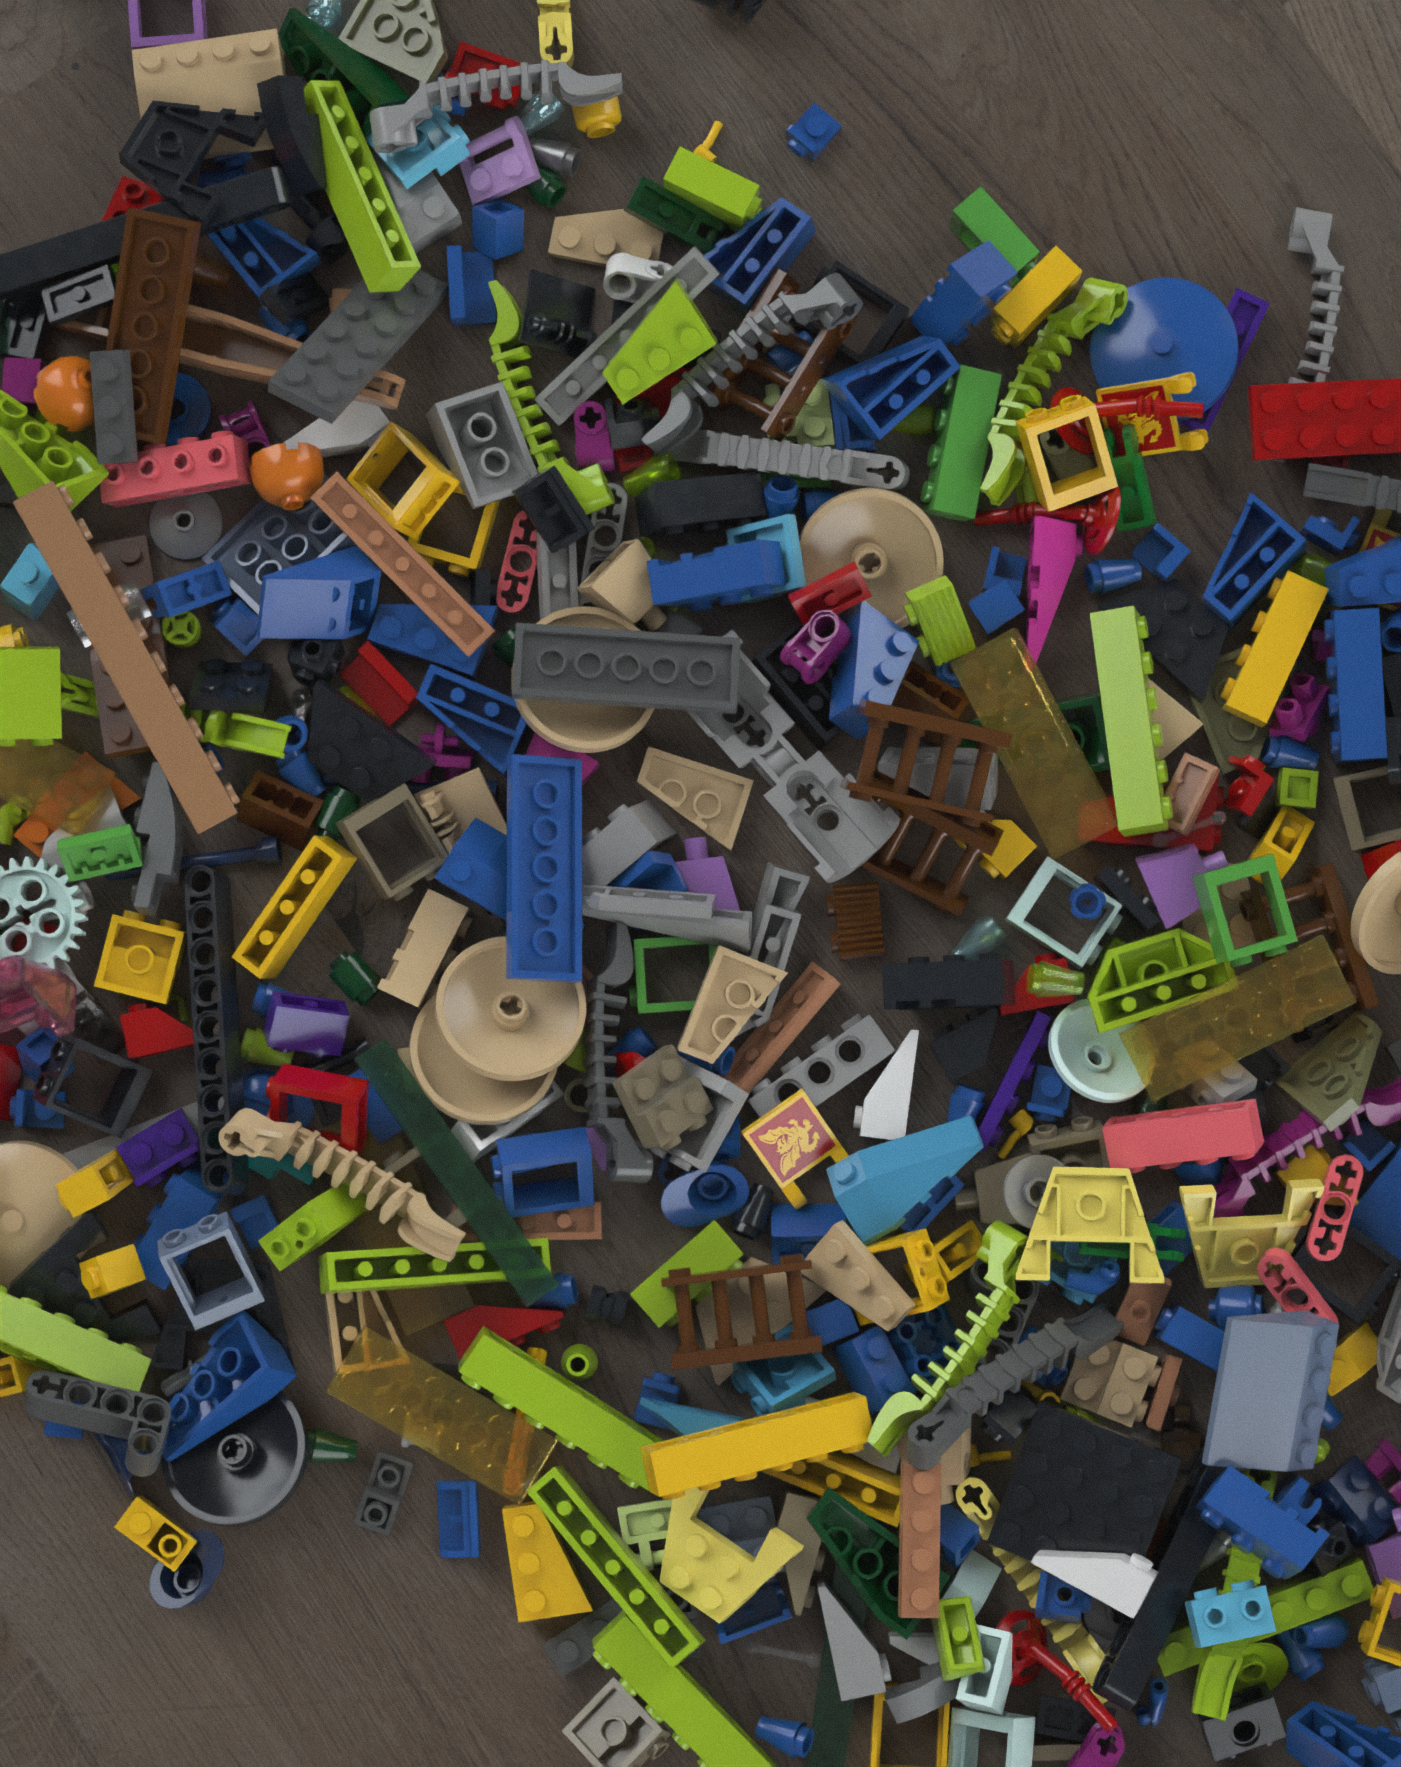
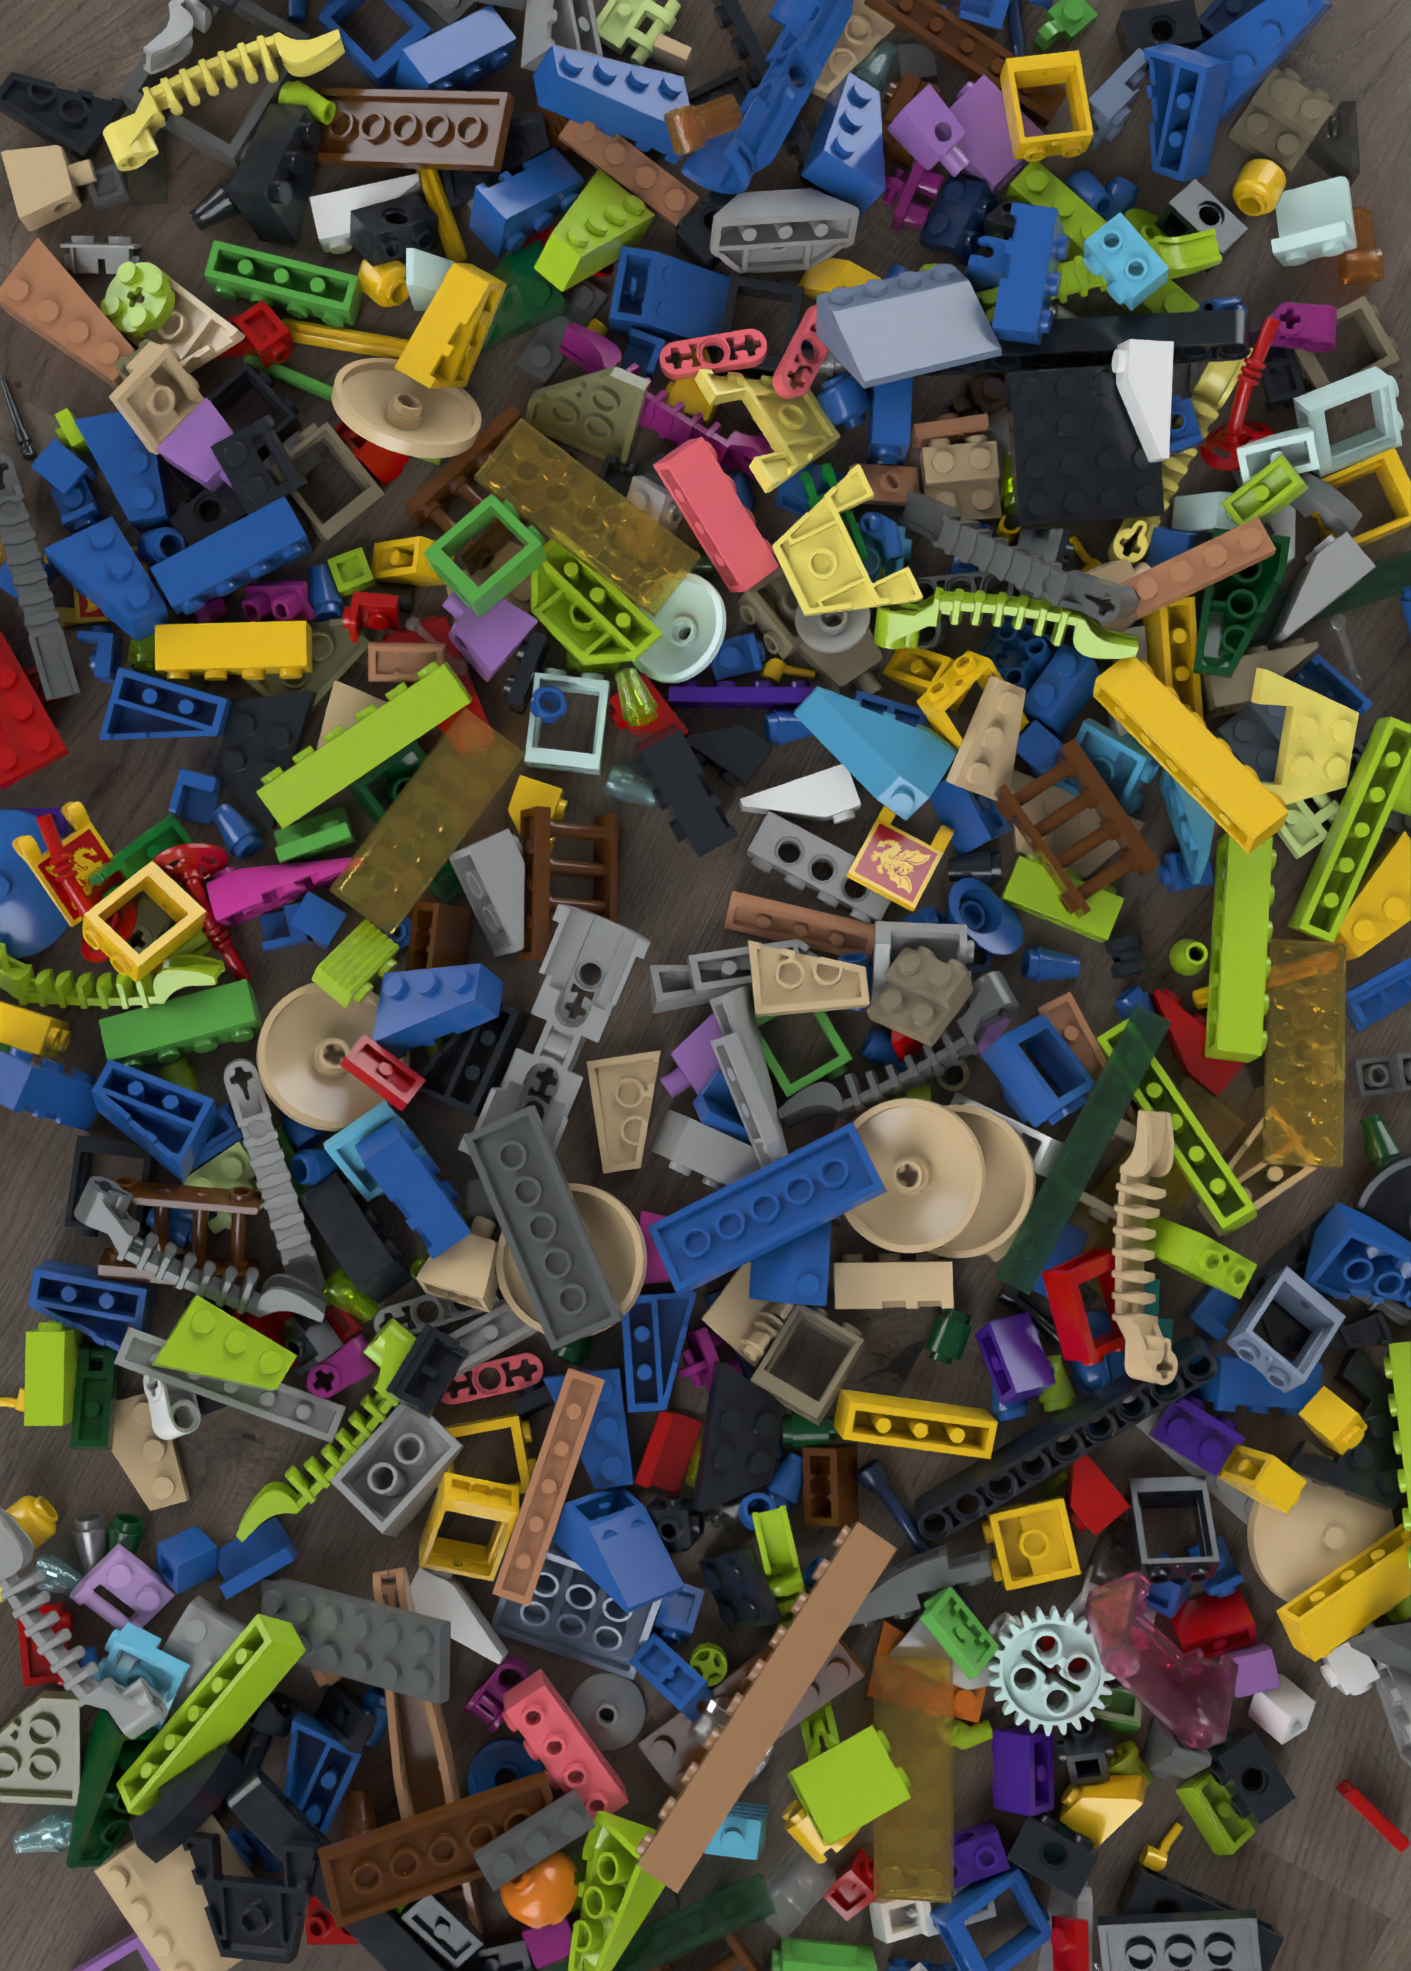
camera: 130 degrees left, 0 degrees up
(287, 476) = (517, 1637): orange cylinder -> none
(557, 315) = (241, 1461): black hinge -> none
(634, 1233) = (1047, 965): none -> blue cone
(814, 647) = (438, 1062): magenta piece -> none
(857, 921) = (668, 904): reddish brown brick -> none
(950, 734) = (465, 930): reddish brown fence -> none
(1072, 639) = (314, 837): none -> bright green bracket

